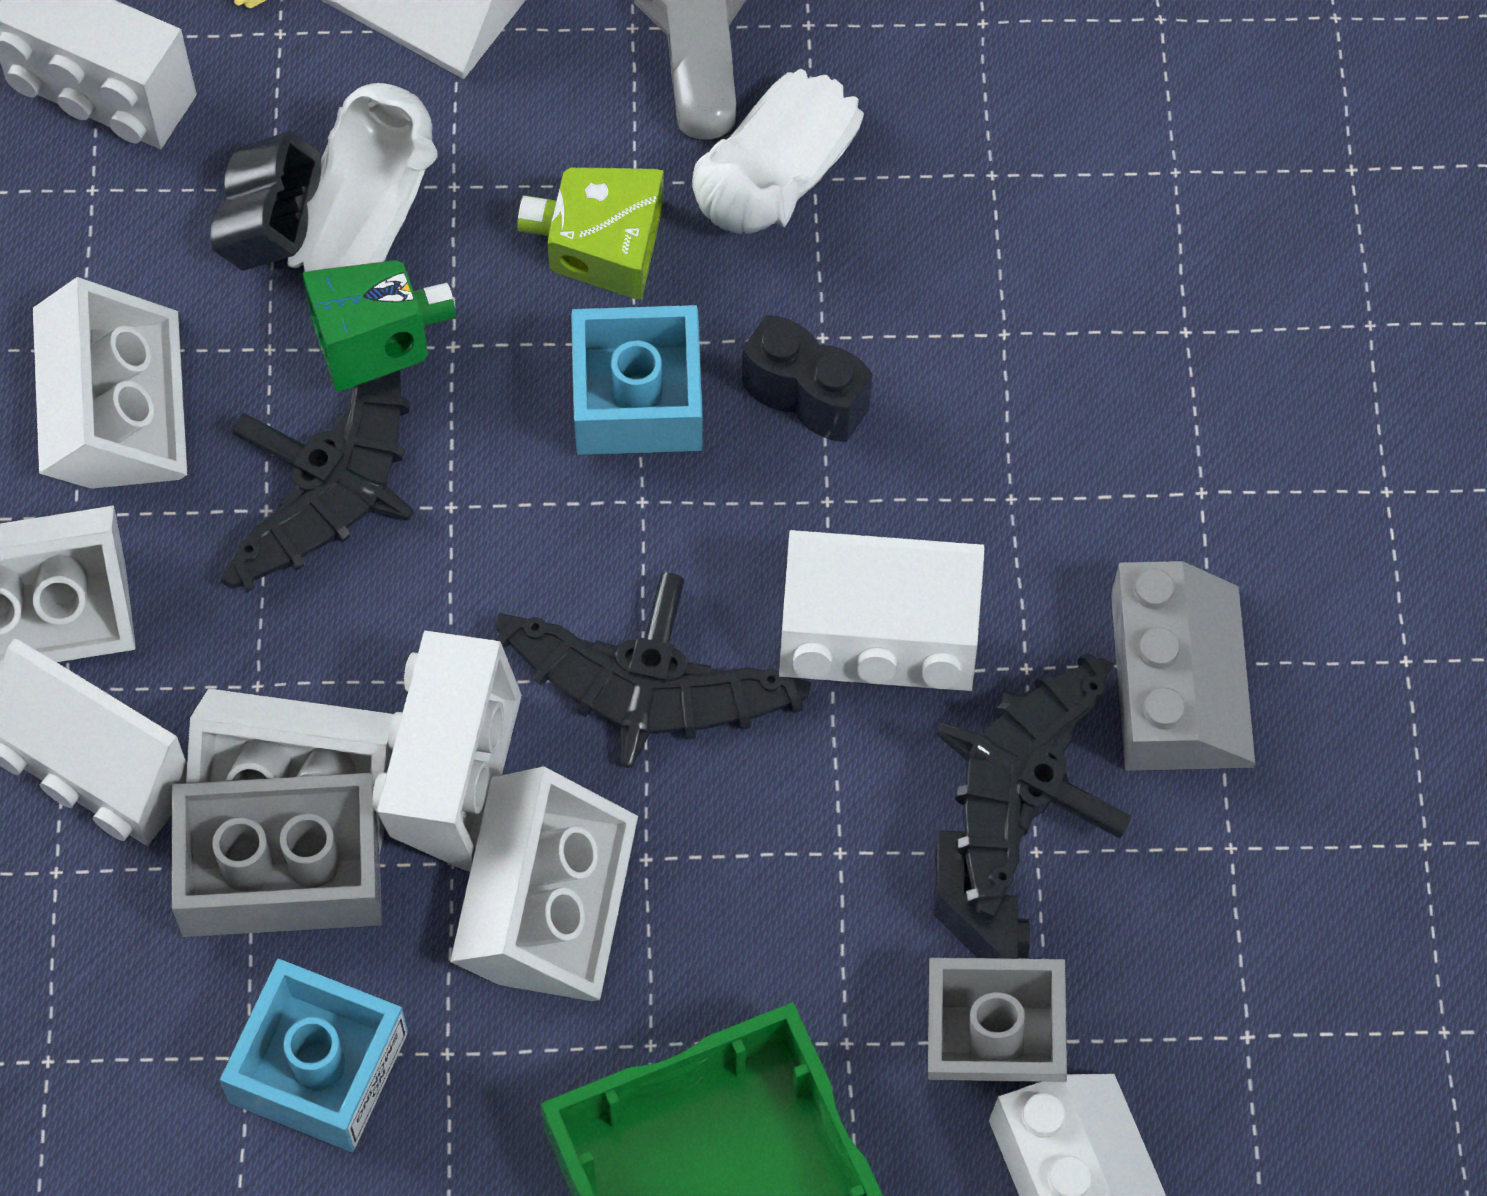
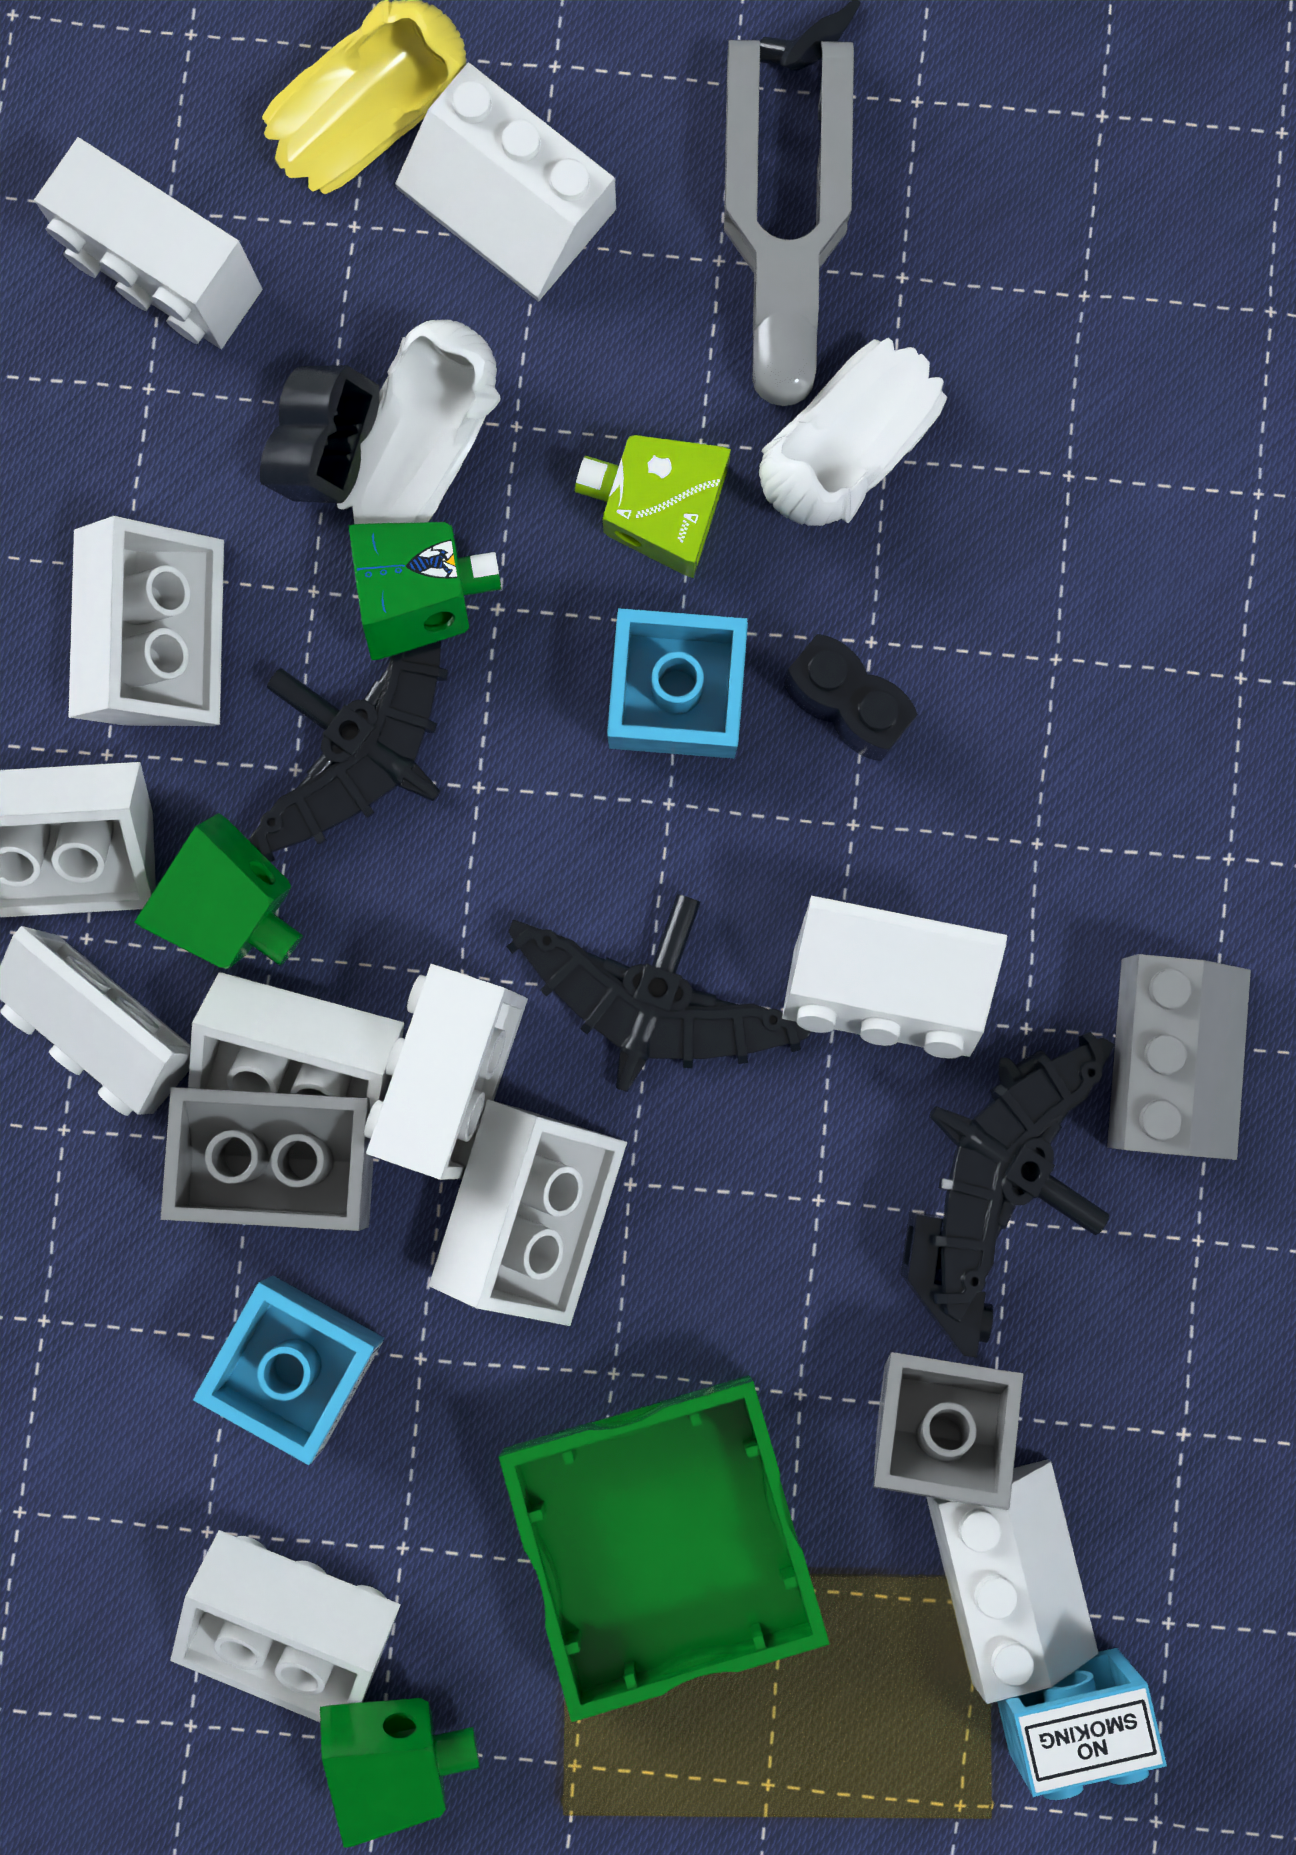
camera: 10 degrees right, 20 degrees up
(205, 619) = (221, 899): none -> green torso

